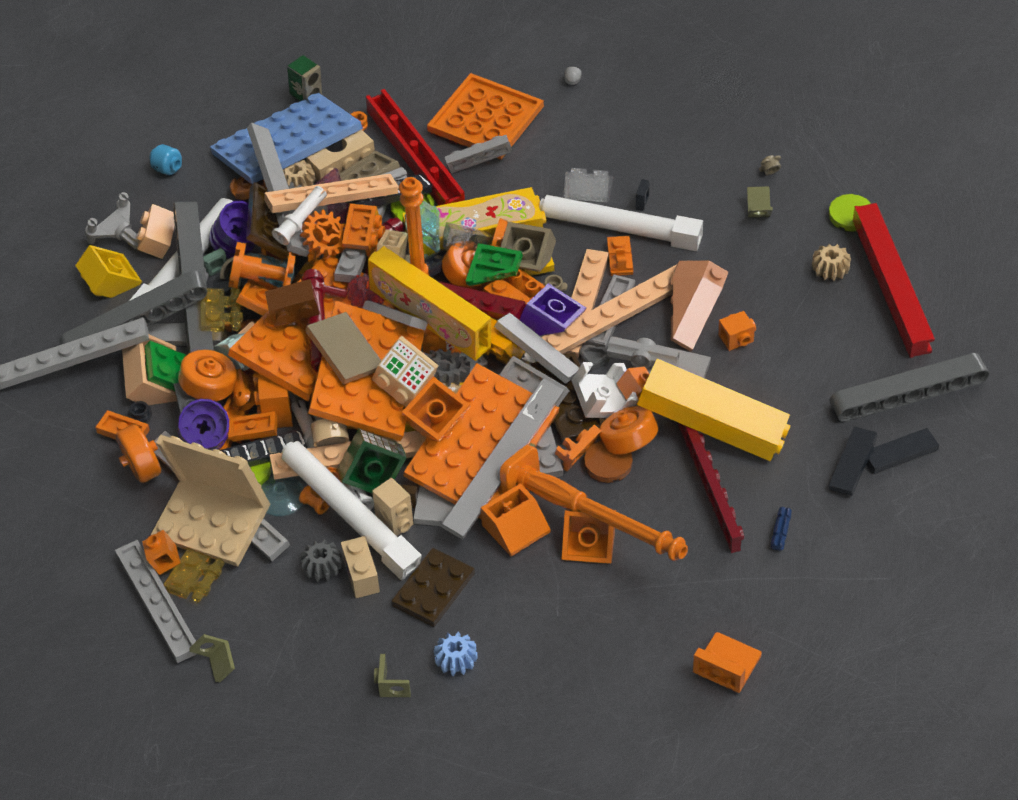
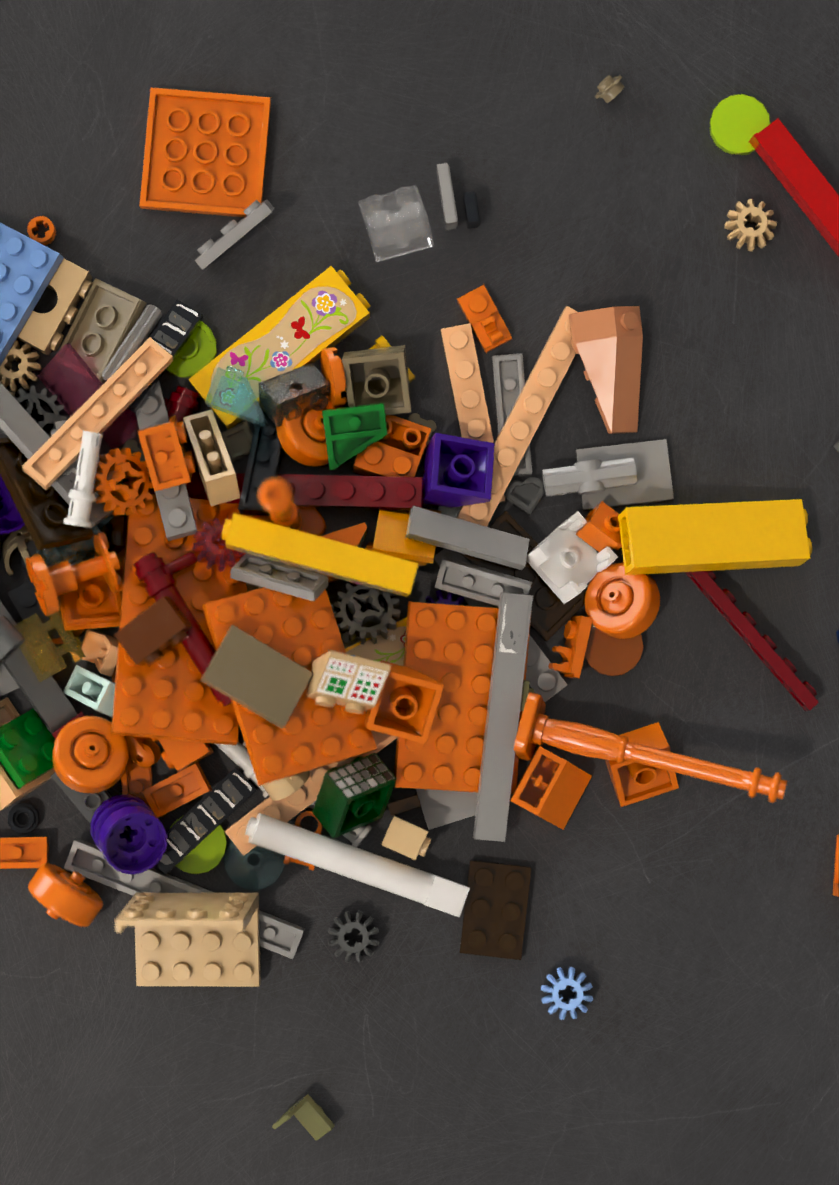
camera: 30 degrees left, 35 degrees up
(156, 600) = (194, 1071): light grey plate -> none
(161, 552) = (166, 1011): orange brick -> none
(186, 575) = (206, 1017): clear yellow plate -> none
(360, 567) = (404, 928): tan brick -> none
(384, 685) = (499, 1061): olive bracket -> none
(413, 148) = (145, 256): red tile -> none
(556, 281) = (434, 401): dark tan plate -> none
(572, 75) = (285, 32): light grey hinge -> none
(630, 183) = (447, 196): none -> light grey tile
(682, 232) = (541, 254): white brick -> none
(736, 330) = (682, 384): orange brick -> none
(759, 202) = (623, 162): olive bracket -> none

